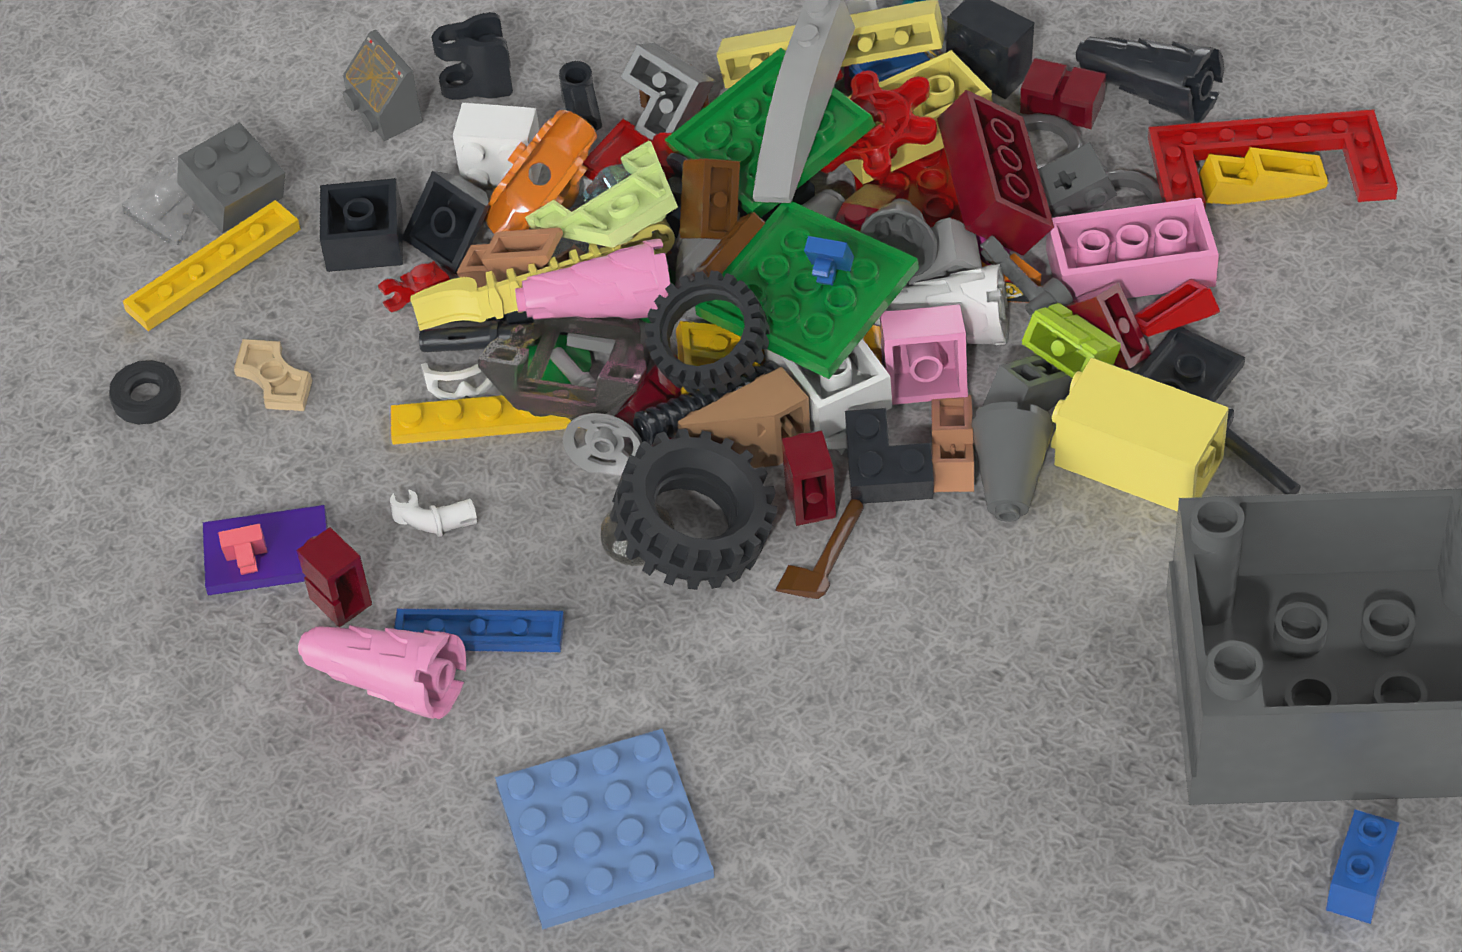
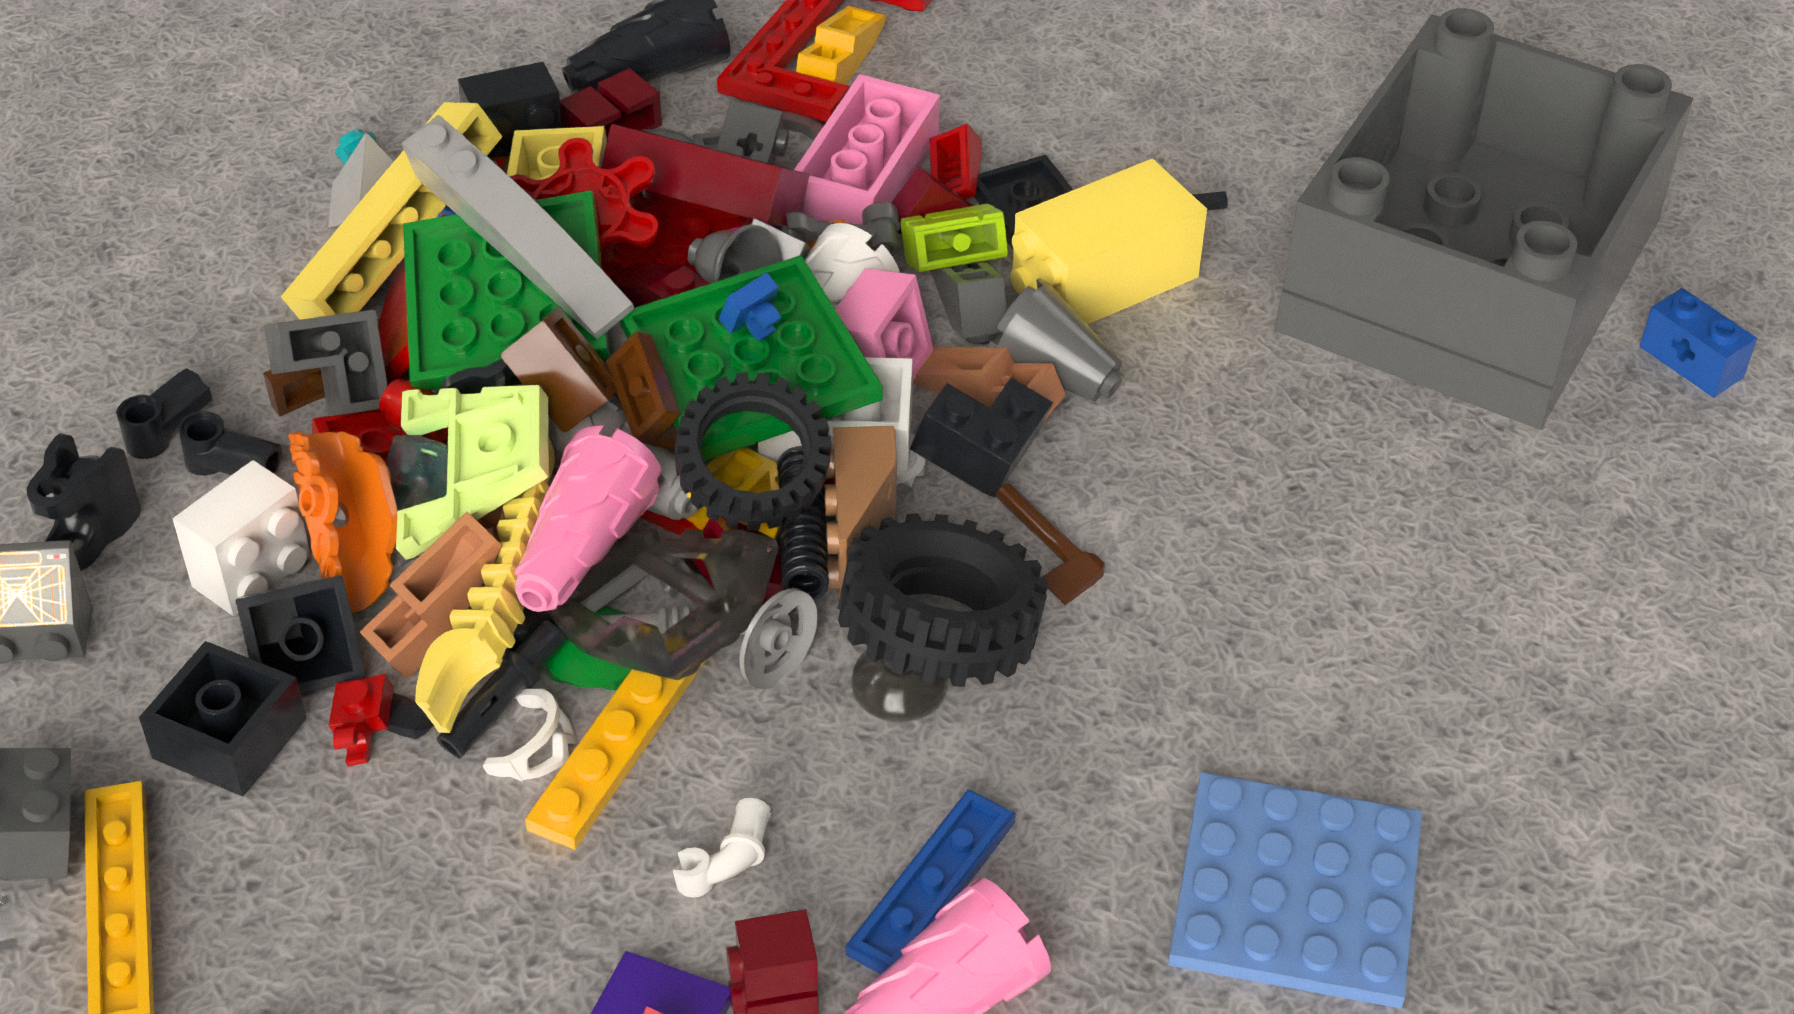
camera: 65 degrees left, 5 degrees down
(282, 384) = (383, 918): tan tile -> none
(595, 50) = (151, 418): none -> black piece
(809, 477) = (968, 483): dark red brick -> none

